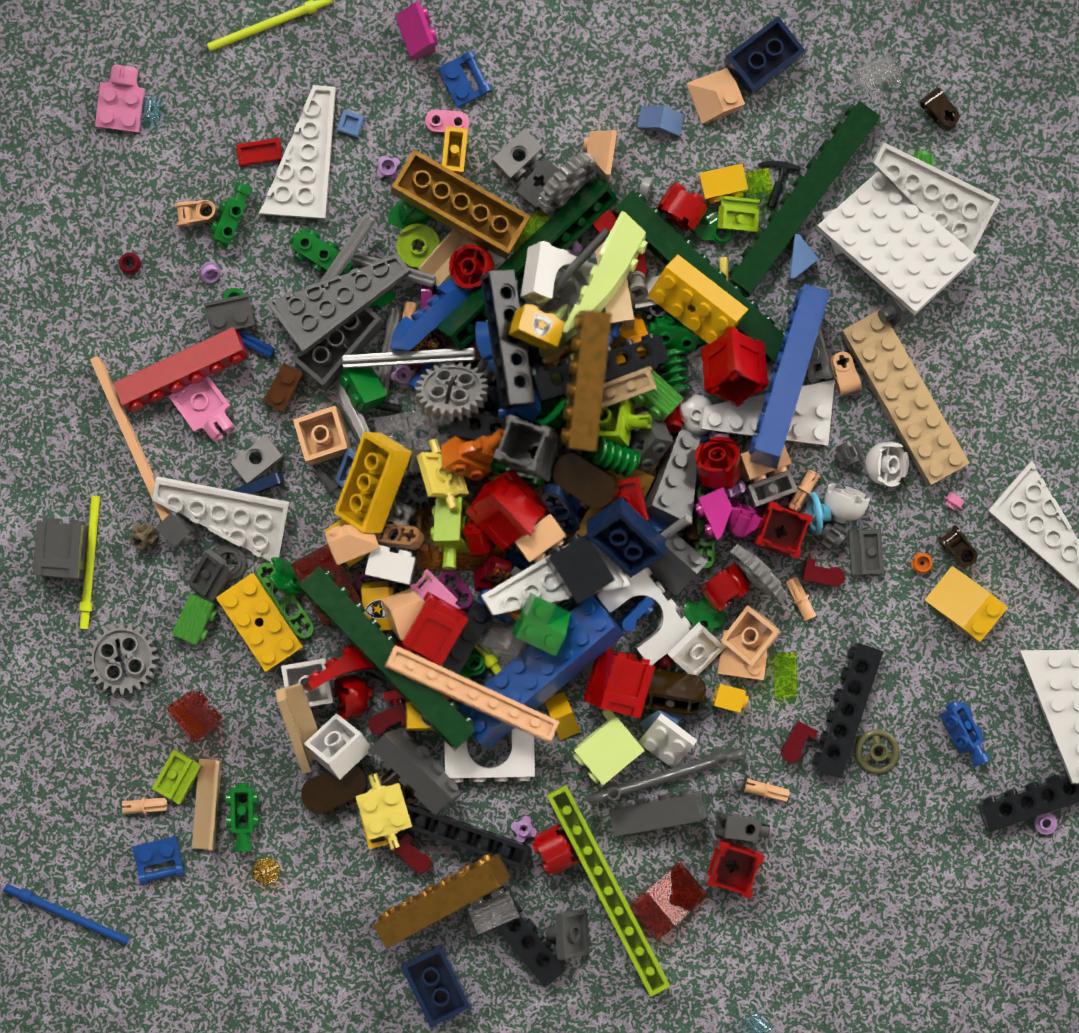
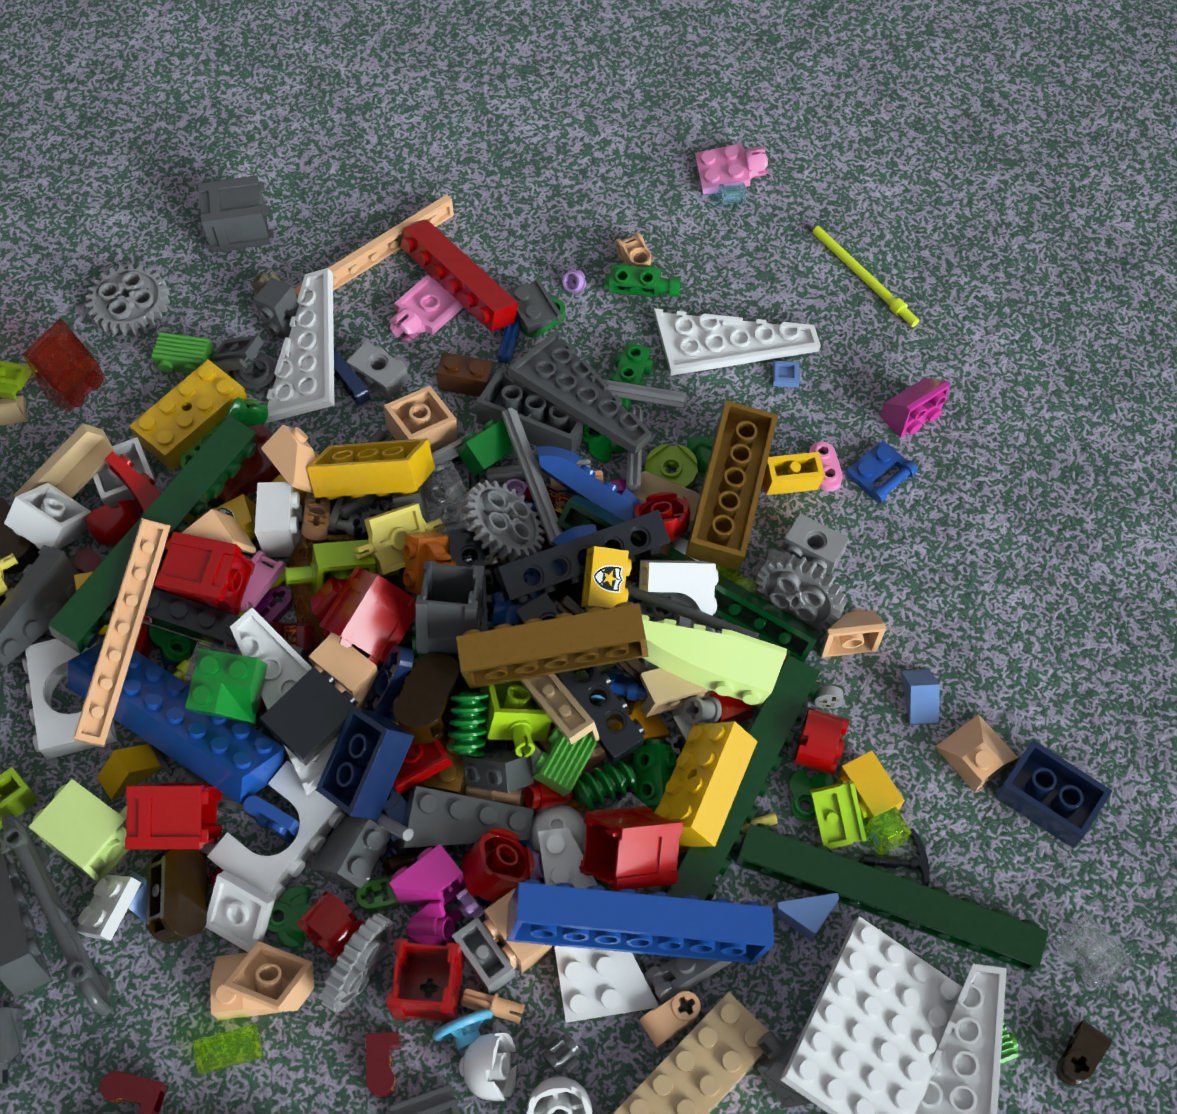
camera: 80 degrees right, 25 degrees down
(86, 605) = (181, 257): neon yellow bar -> none
(126, 257) = (561, 208): dark red plate -> none
(259, 152) = (721, 297): red tile -> none
(729, 698) = (179, 973): yellow brick -> none
(766, 790) = (58, 1068): light nougat axle -> none
(800, 598) = (341, 1043): light nougat axle -> none
(831, 535) = (438, 1060): dark grey gear -> none

